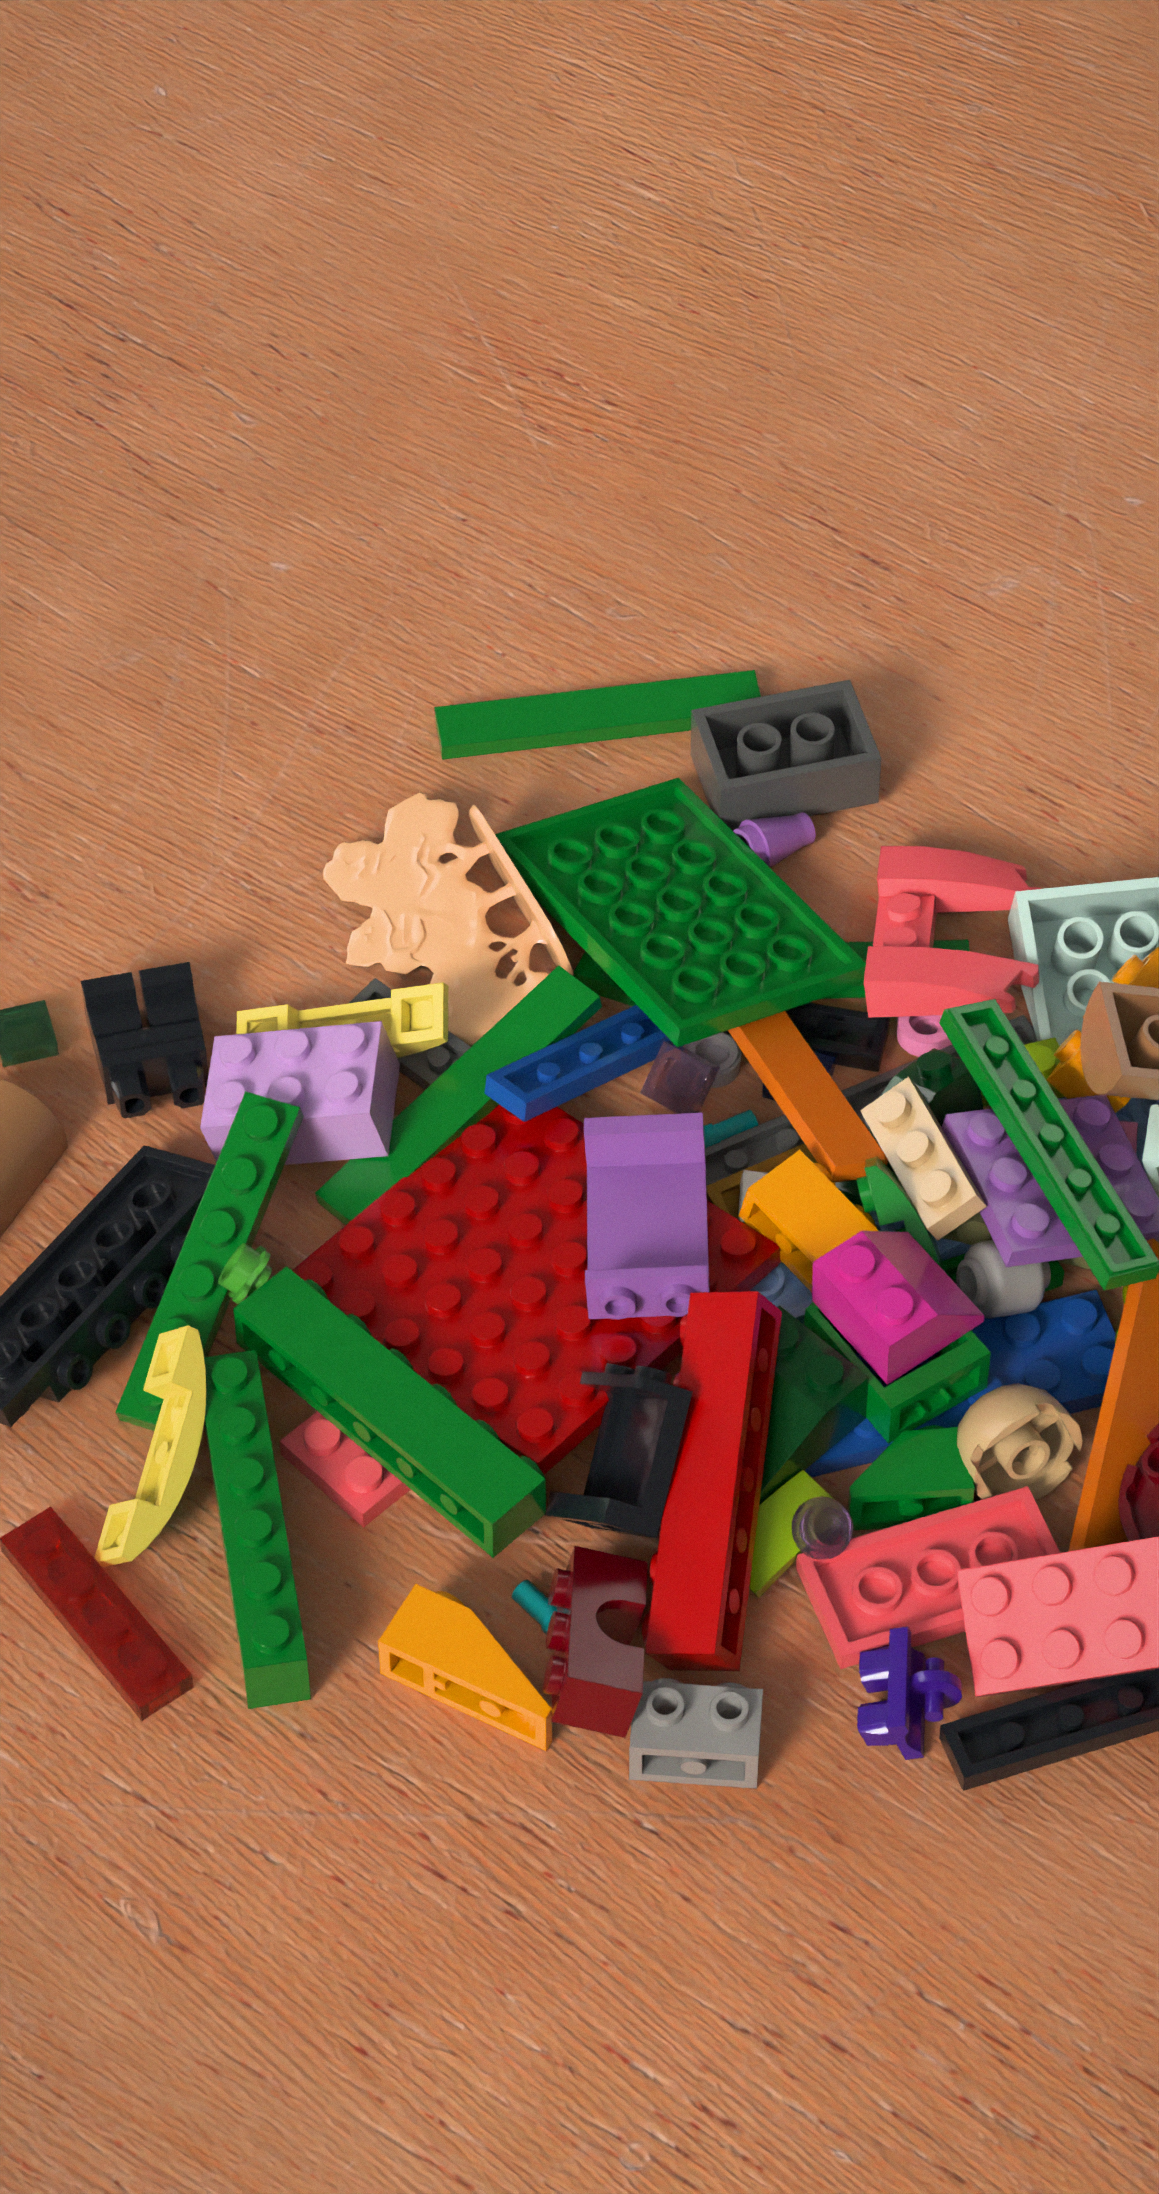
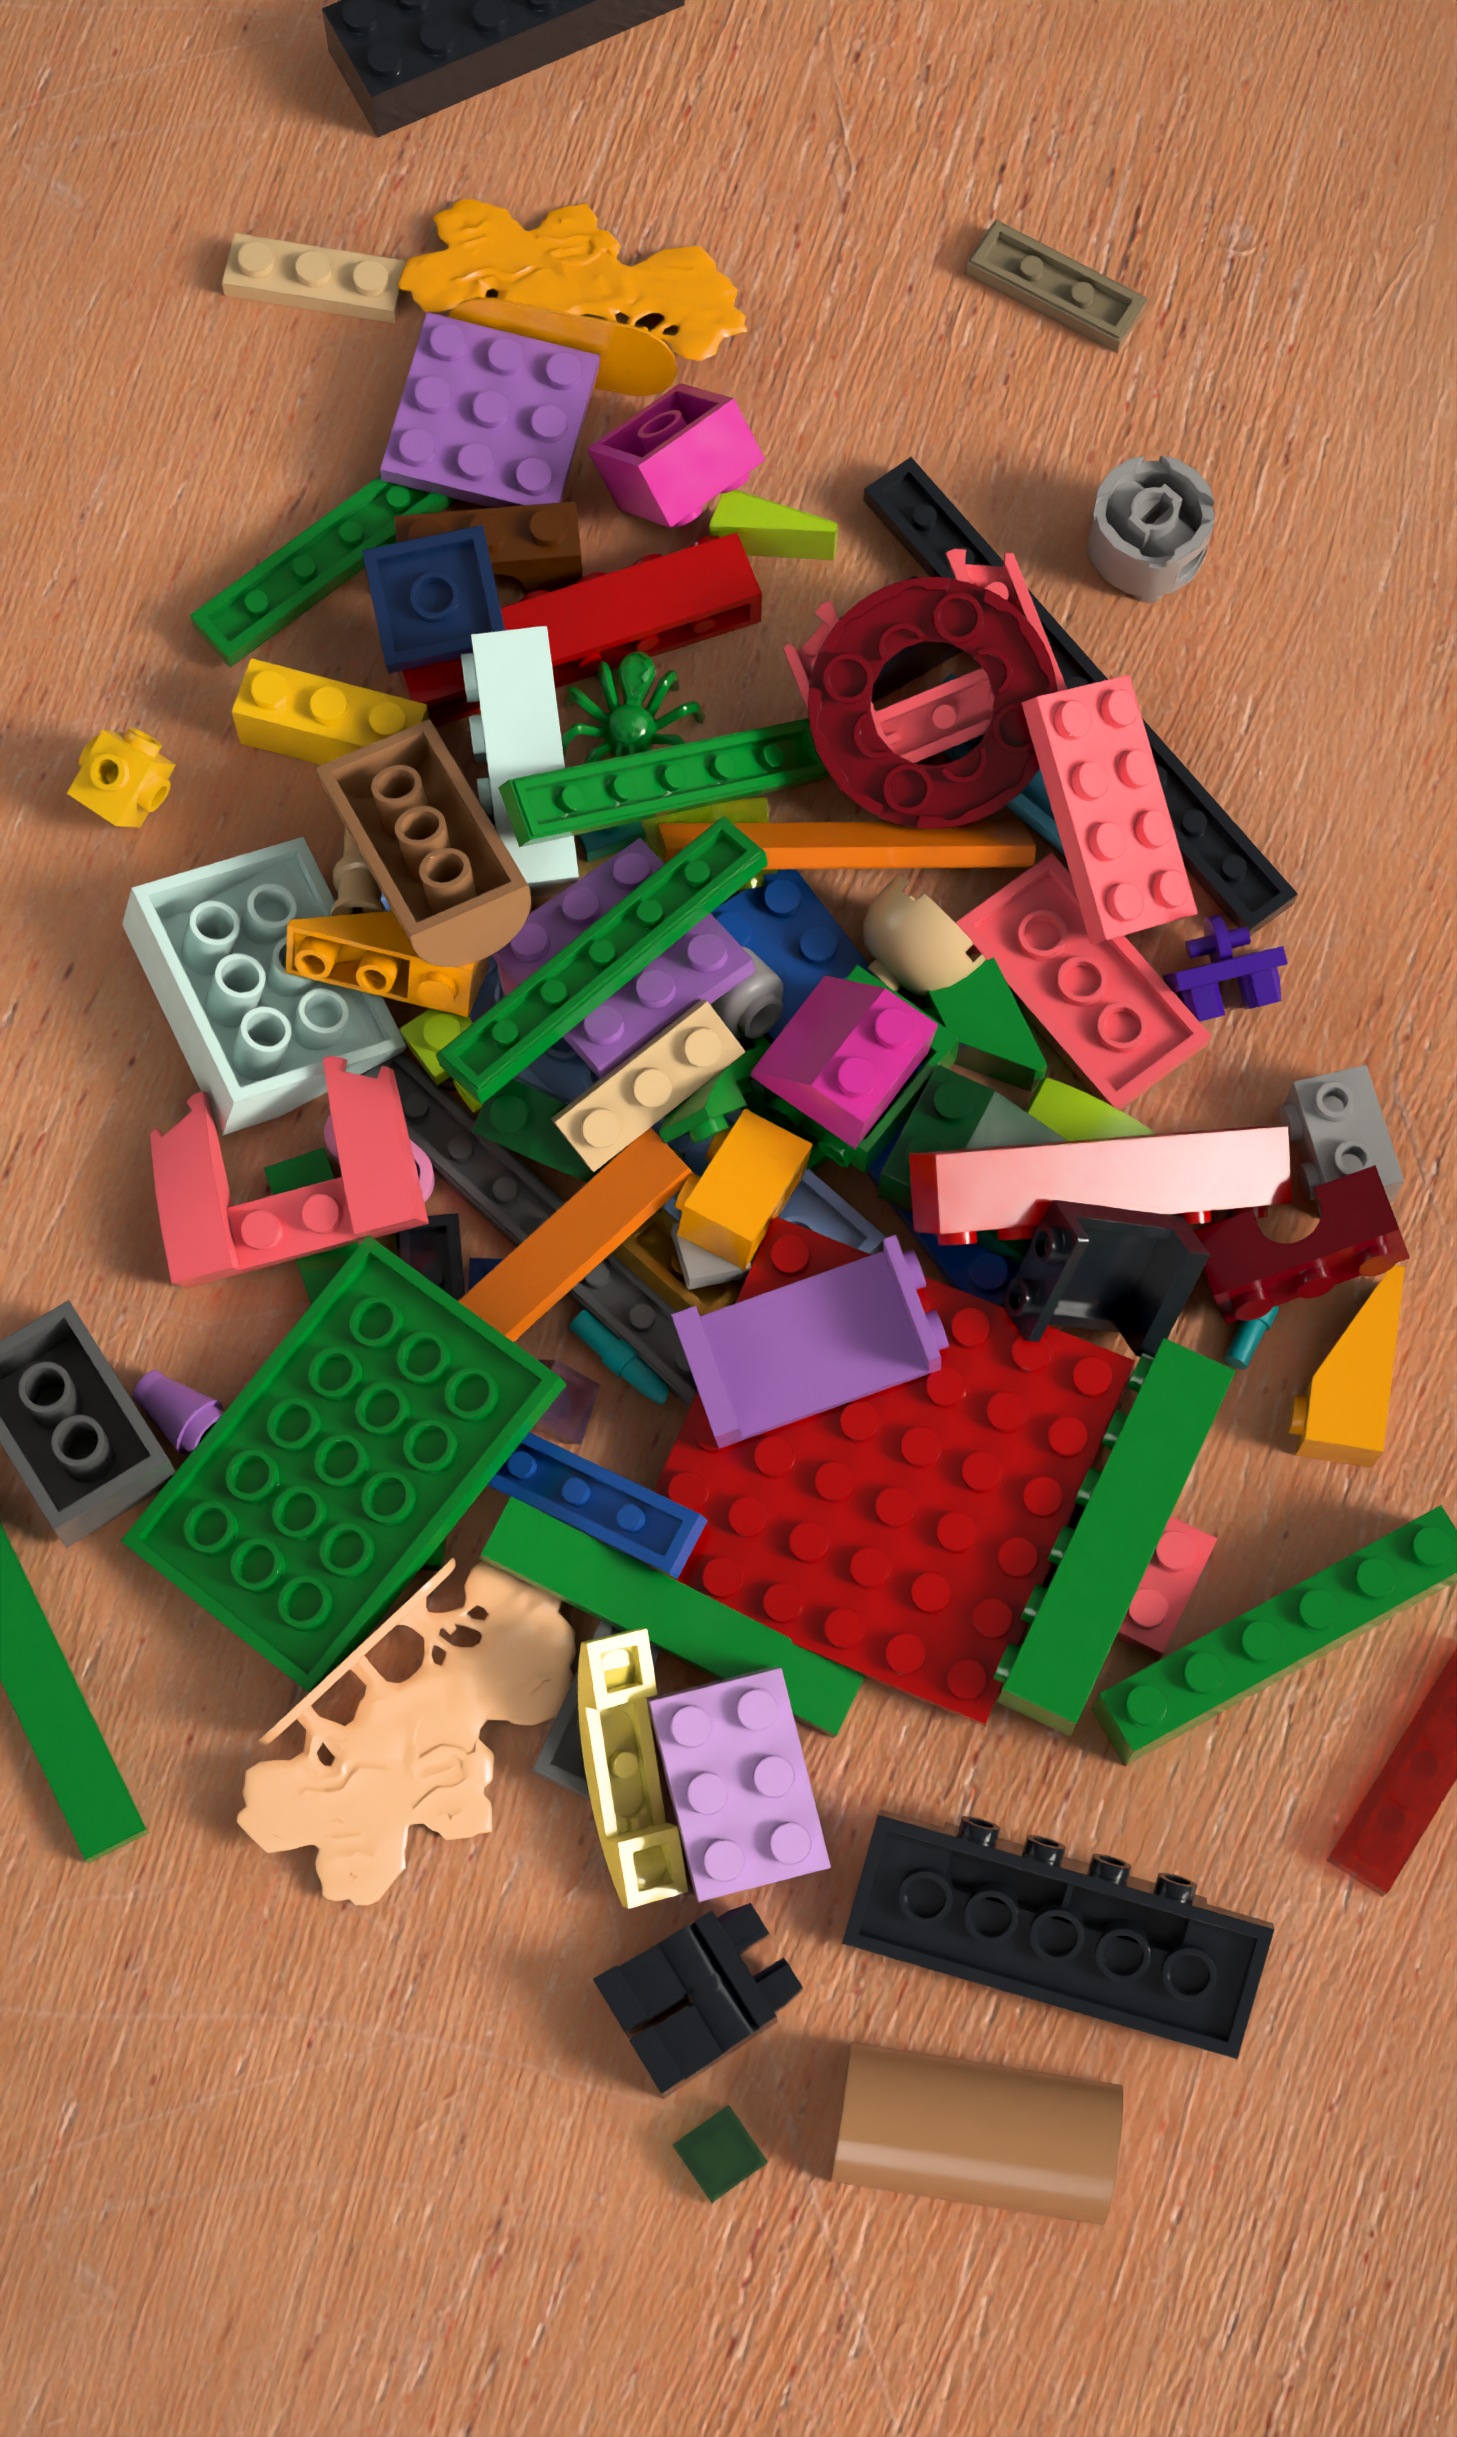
camera: 110 degrees left, 20 degrees up
(180, 1379) = (1250, 1744): light yellow slope -> none
(223, 1222) = (994, 1790): green plate -> none
(245, 1272) = (1020, 1732): bright green plate -> none
(822, 1528) = (1092, 1080): plate -> none

